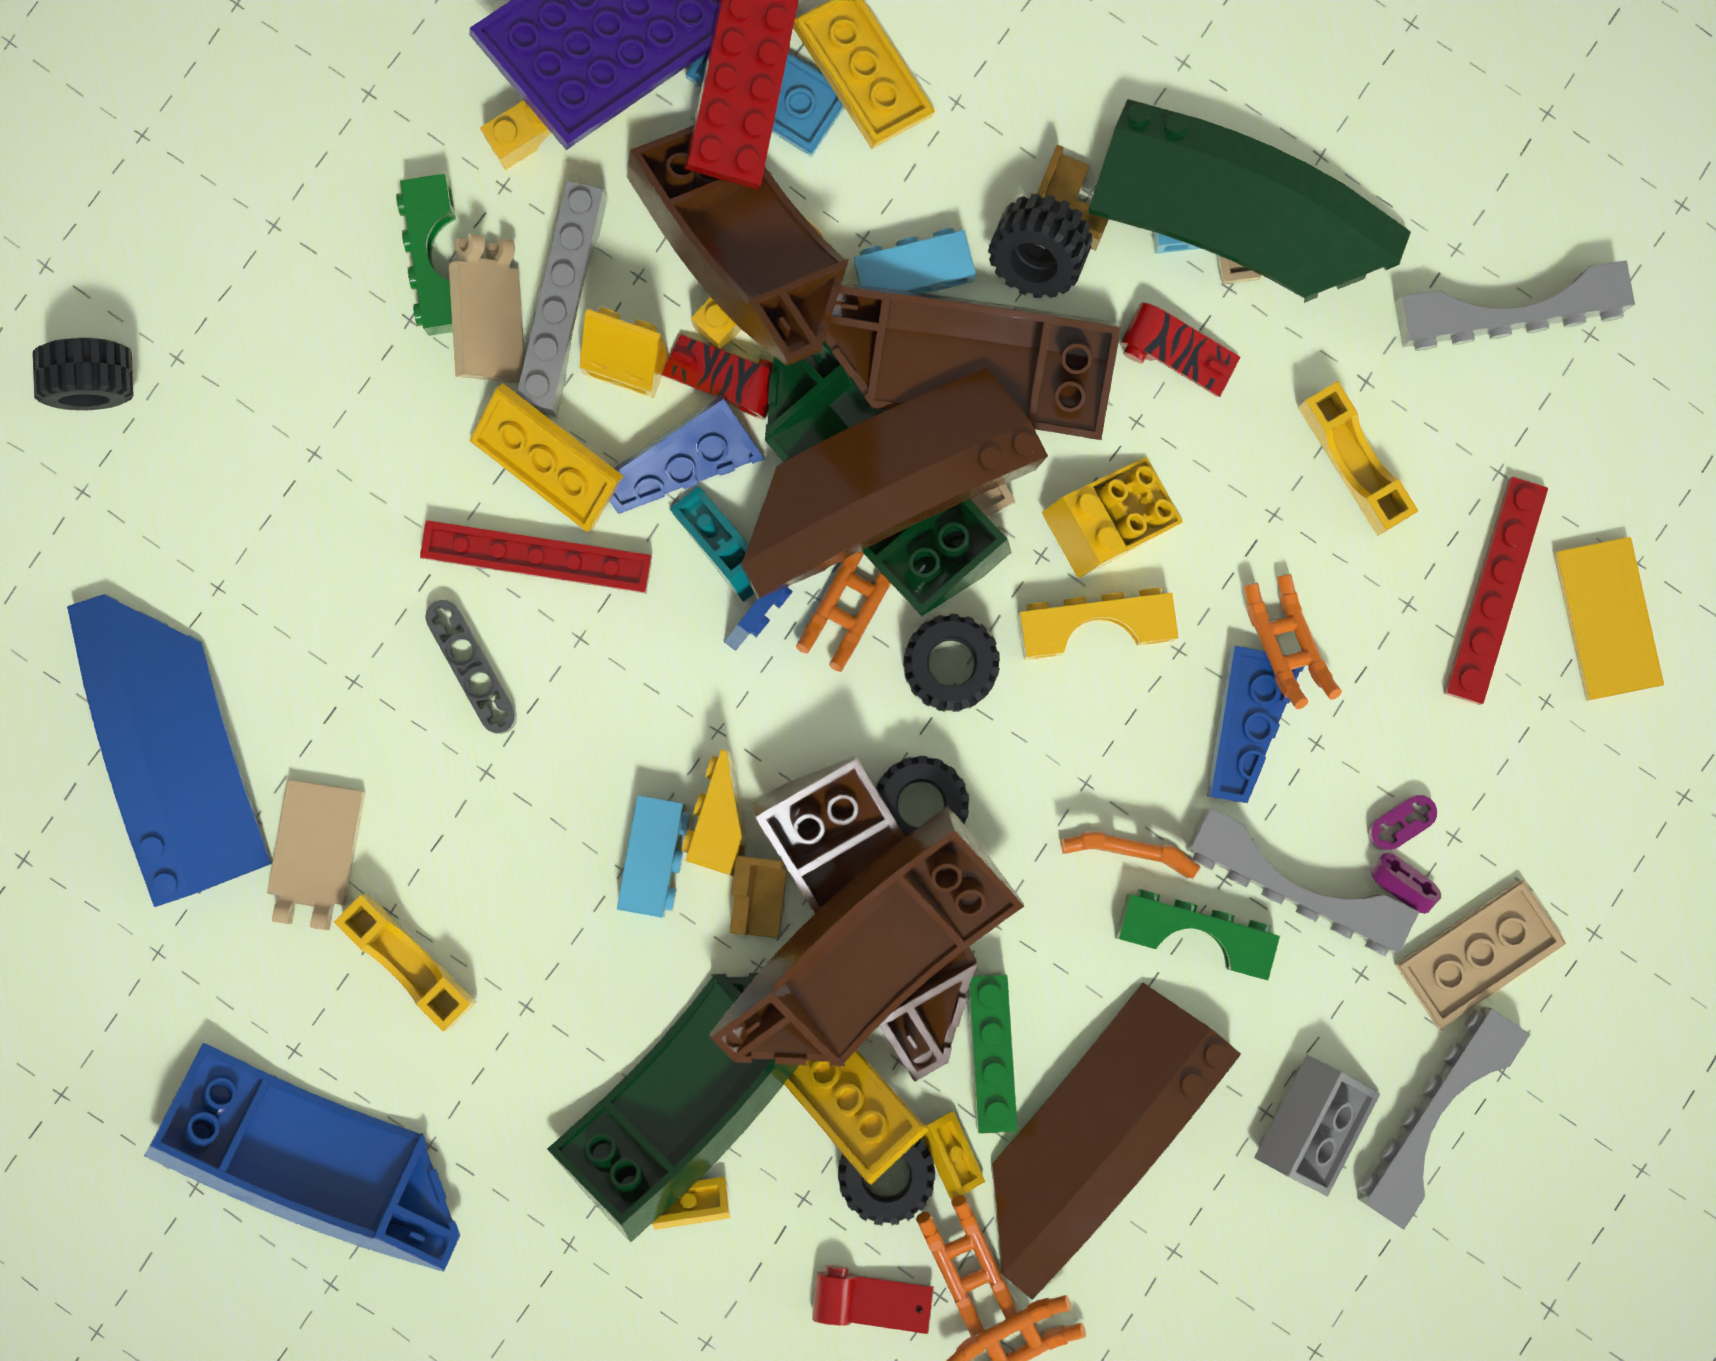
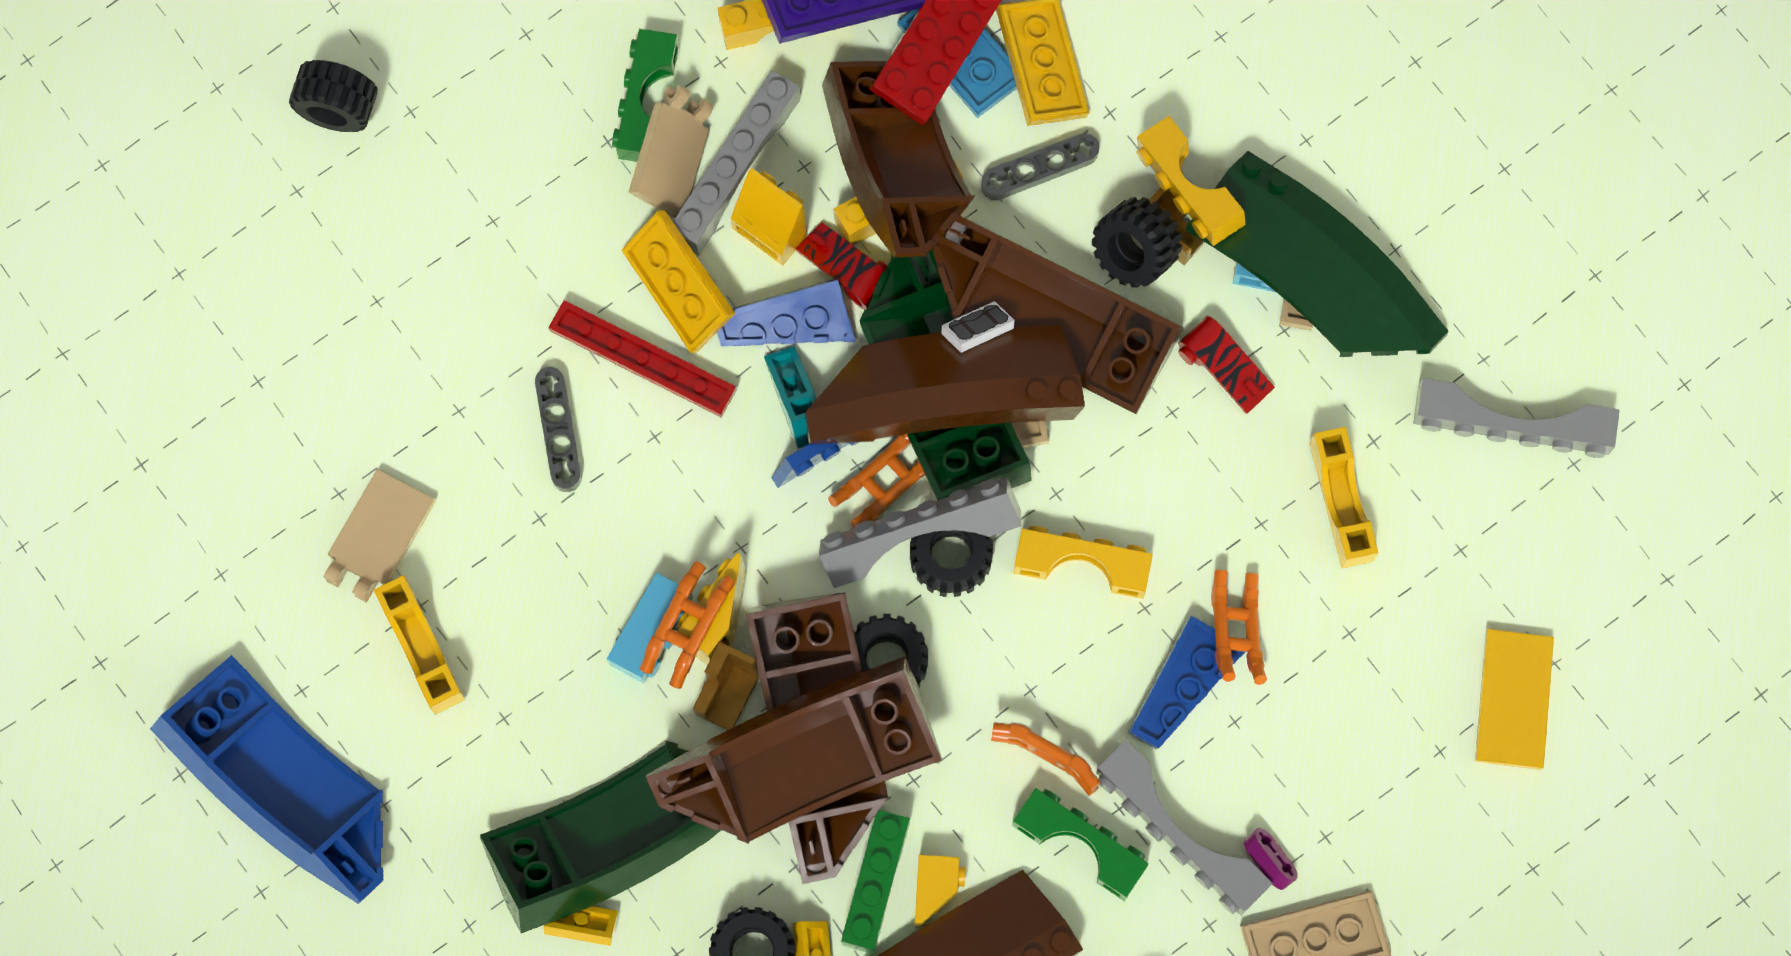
camera: 20 degrees right, 10 degrees down
(165, 750) = (288, 413): blue slope -> none
(711, 833) = (689, 645): none -> orange piece
(857, 1112) = (745, 886): yellow tile -> none
(898, 403) = (977, 326): none -> tile
(903, 193) = (1042, 171): none -> dark grey beam
(917, 264) = (1035, 228): medium azure brick -> none
(973, 612) = (980, 510): none -> light grey arch
(1058, 1034) = (936, 885): none -> yellow slope
(1111, 517) = (1124, 479): yellow slope -> none
(1115, 185) = (1212, 210): none -> yellow arch
(1397, 815) = (1287, 817): magenta beam -> none
(1496, 590) = (1426, 645): red plate -> none

